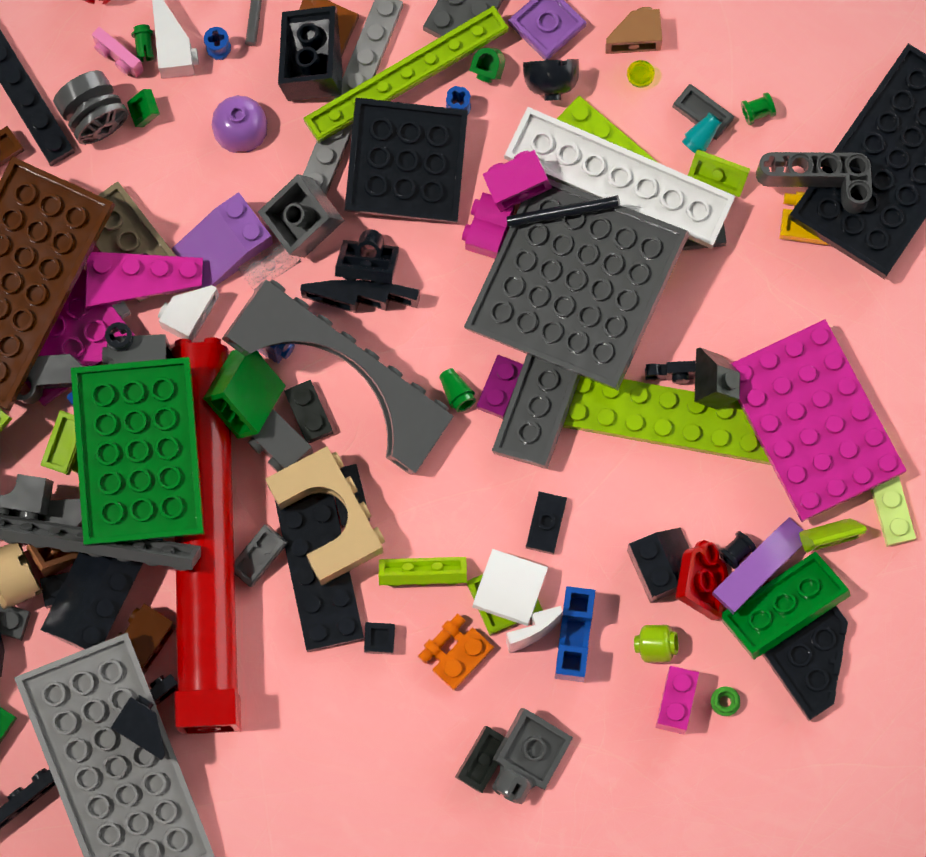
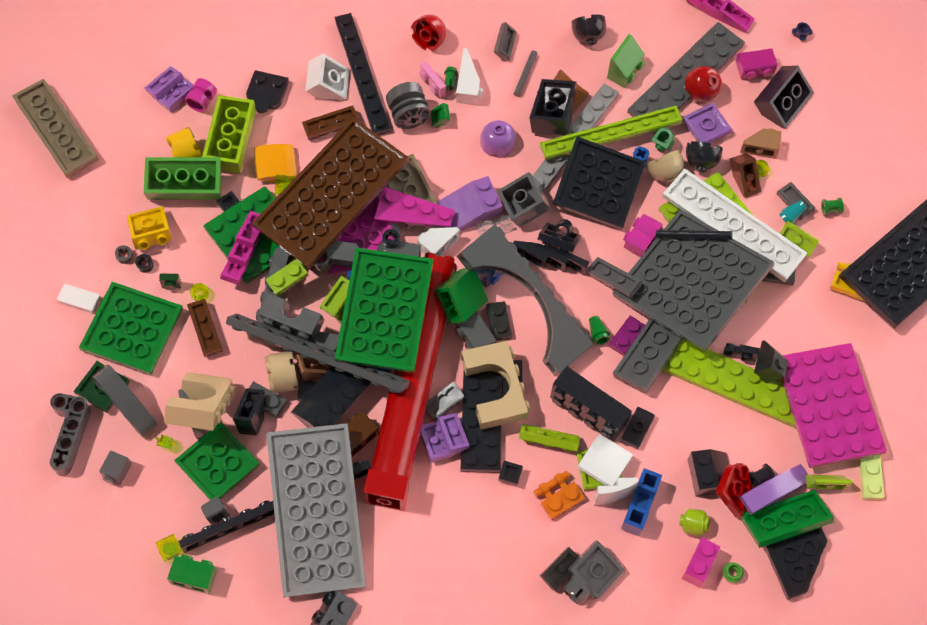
camera: 10 degrees right, 10 degrees down
(140, 725) = (340, 484): black slope -> none
(213, 35) = (496, 88): blue bush -> none
(271, 610) = (444, 437): none -> medium lavender slope
(461, 304) = (614, 277): none -> dark grey plate
(469, 508) = (590, 404): none -> black brick
(501, 108) = (667, 166): none -> tan cylinder
(516, 180) = (668, 209): dark pink brick -> none
(621, 89) = (746, 174): none -> copper slope
(816, 177) = (840, 243): dark grey beam -> none

